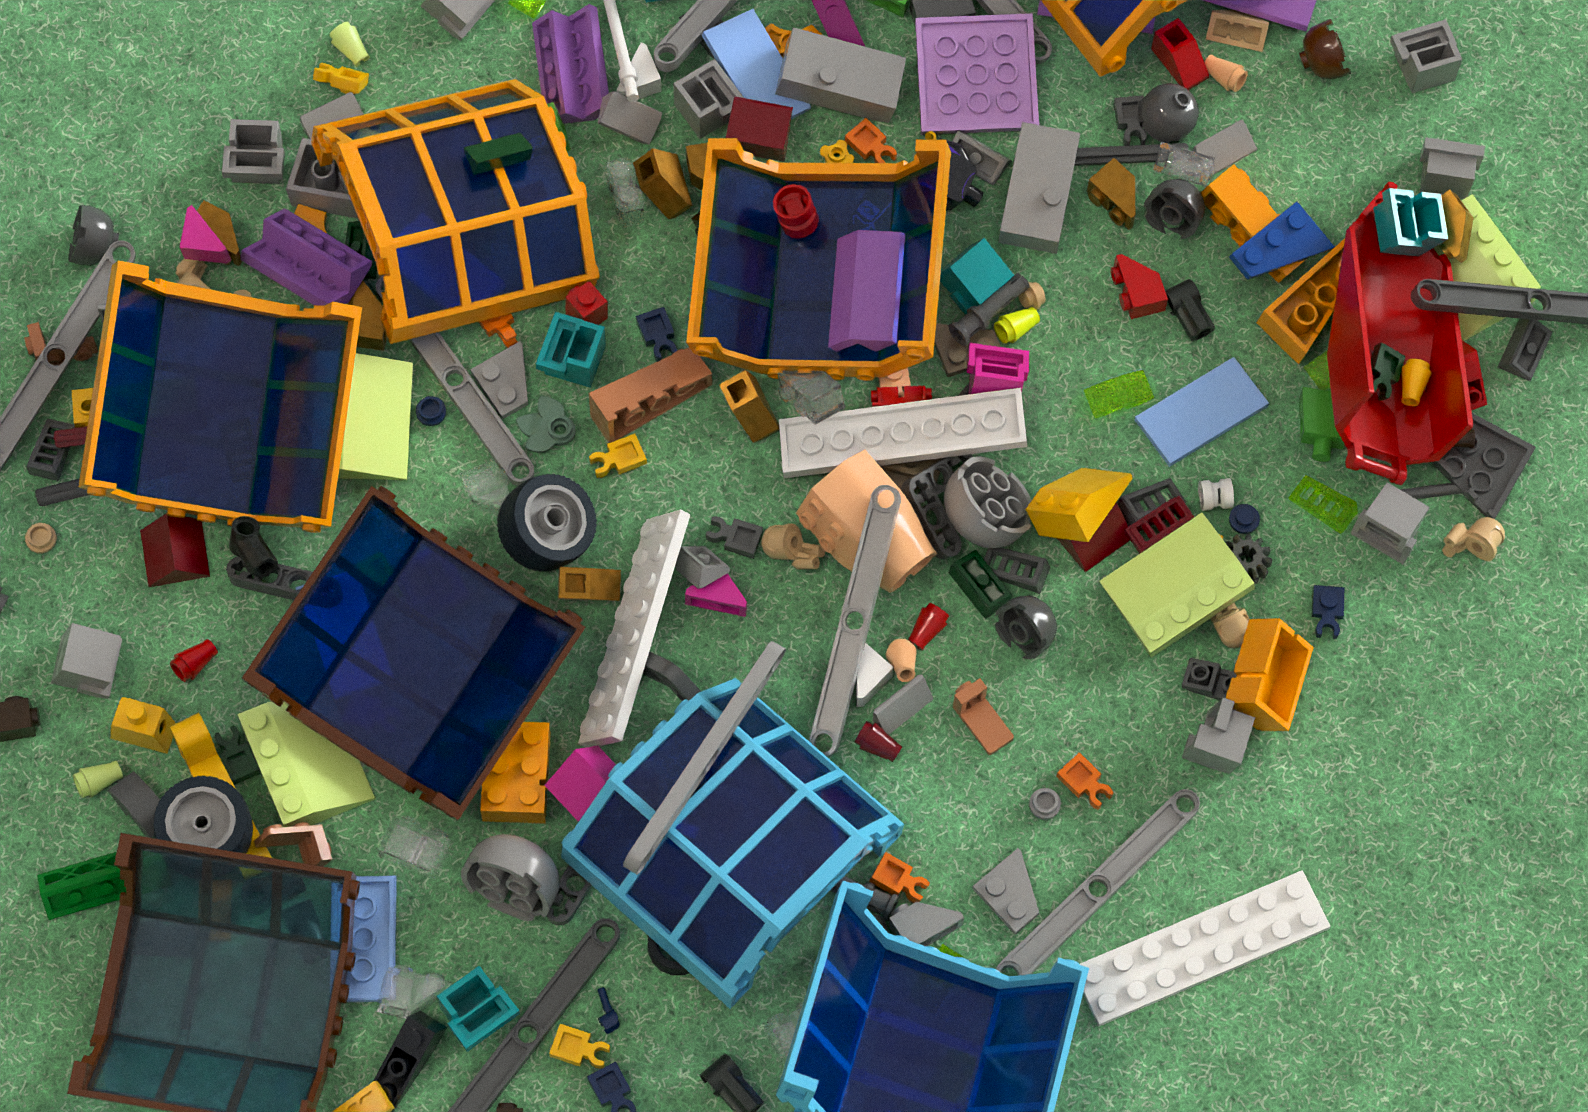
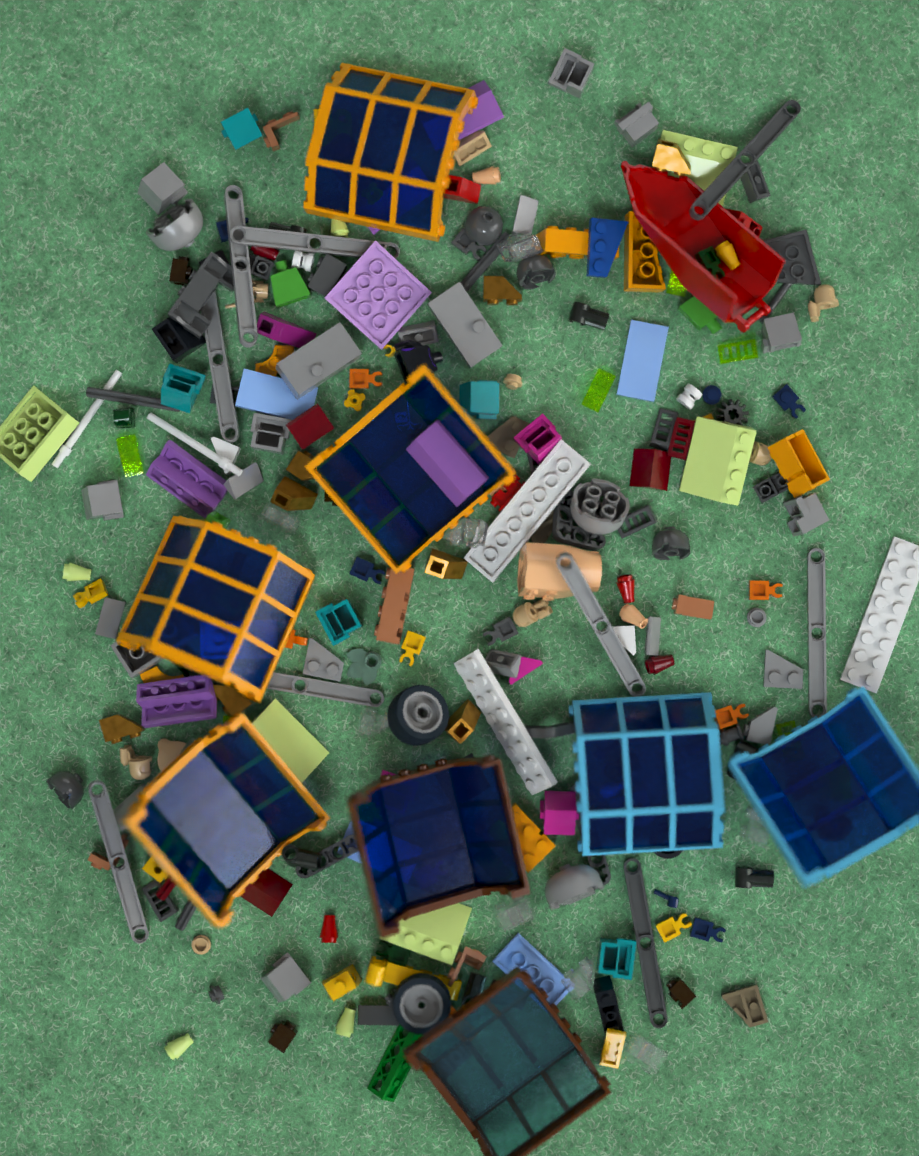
camera: 40 degrees left, 20 degrees up
(199, 241) = (120, 742): dark pink slope -> none
(254, 152) = (95, 673): light grey plate -> none
(431, 411) = (305, 710): dark blue plate -> none
(498, 153) = (220, 574): dark green slope -> none
(586, 304) = (322, 592): red brick -> none
(704, 758) = (614, 766): light grey beam -> none
(795, 211) = (373, 455): red wheel -> none
(979, 316) = (503, 420): dark grey pin -> none
(980, 583) = (629, 544): dark green slope -> none
(1016, 324) = (519, 404): neon yellow cone -> none
(1076, 503) = (637, 464): yellow slope -> none
(1142, 289) = (558, 327): red slope -> none
(1324, 52) = (523, 120): reddish brown cylinder -> none
(1410, 222) = (657, 180): teal plate -> none

